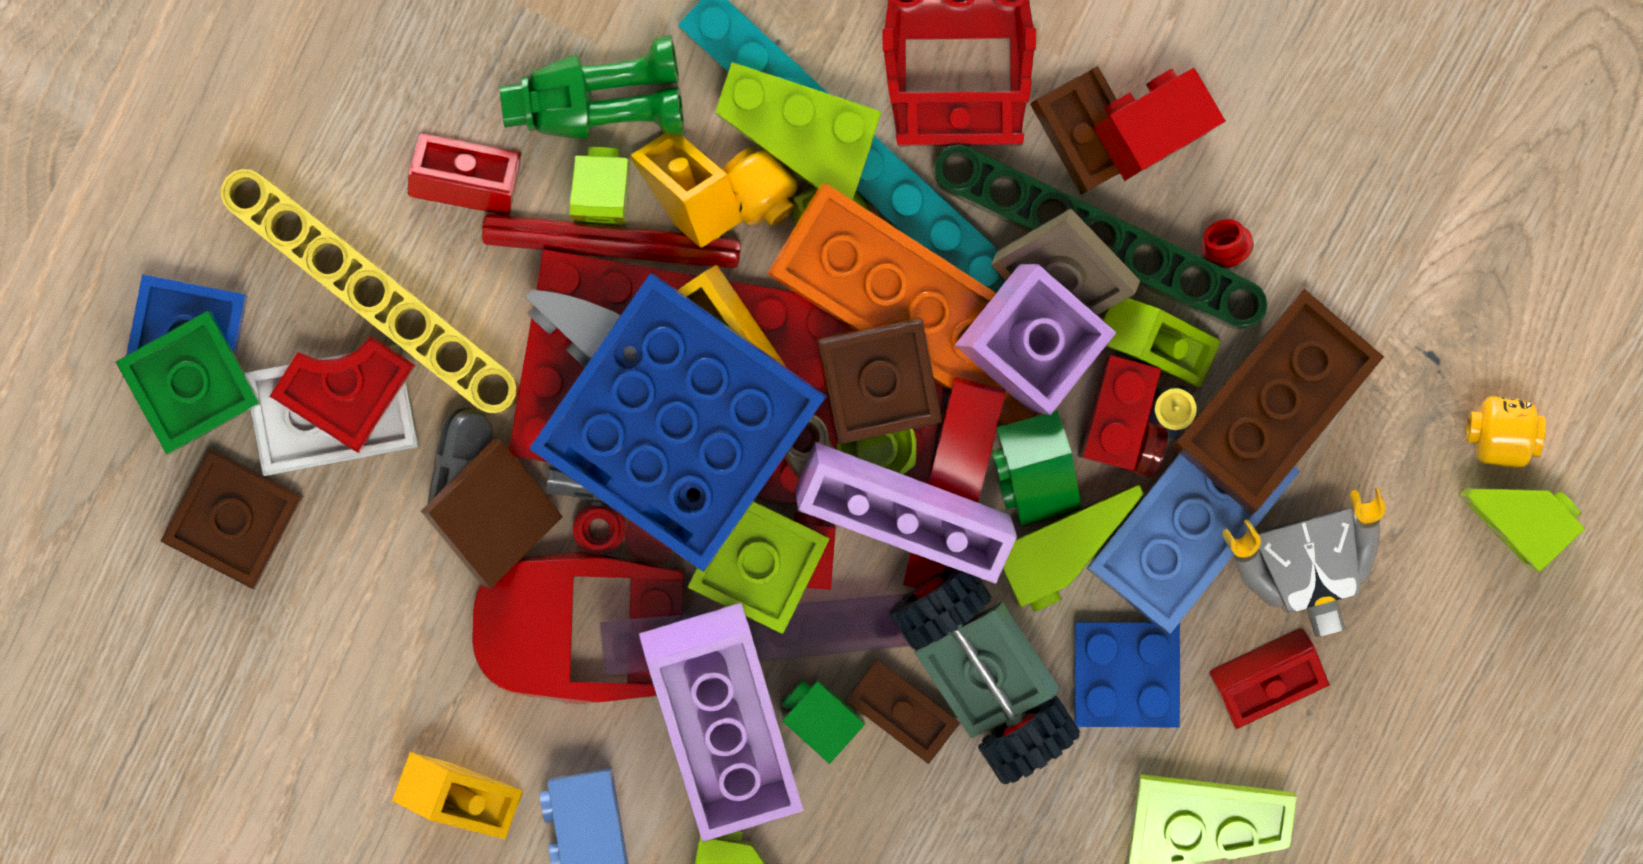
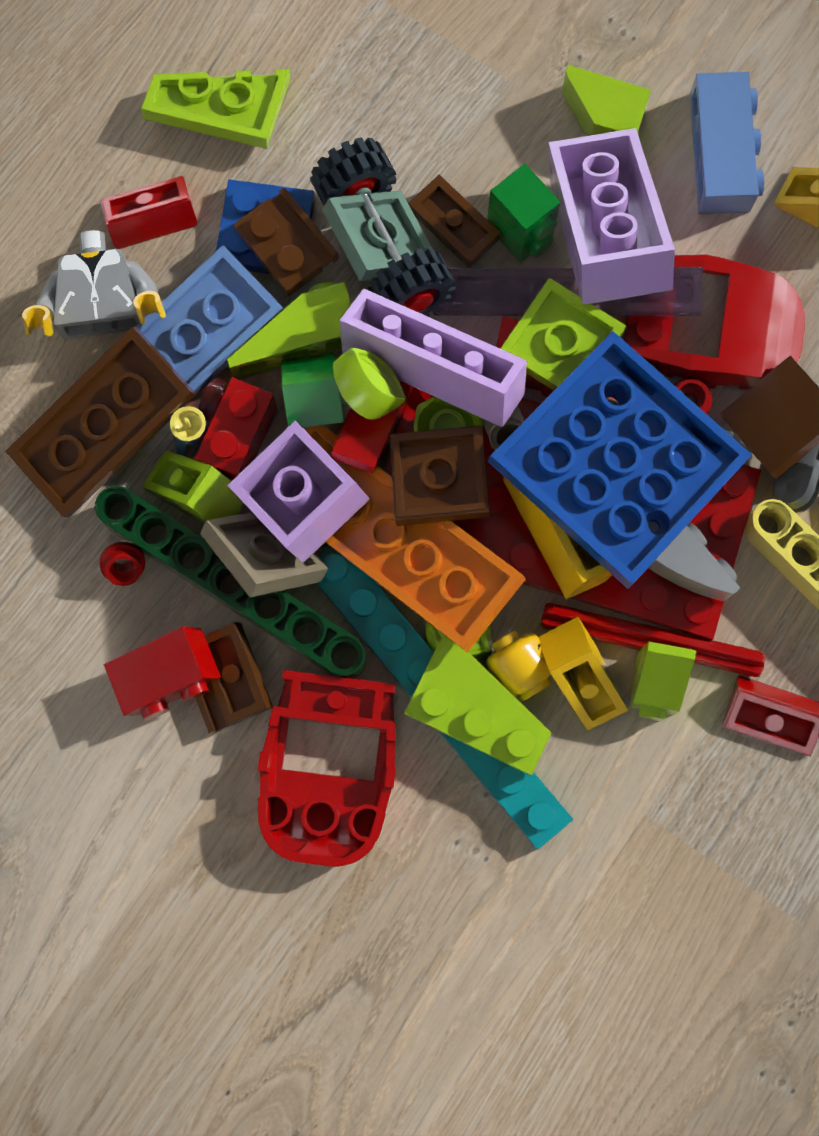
camera: 175 degrees left, 10 degrees down
(561, 103) = (684, 766): green piece -> none
(975, 470) = (367, 383): none -> lime hat
(1097, 650) = (286, 242): none -> reddish brown plate

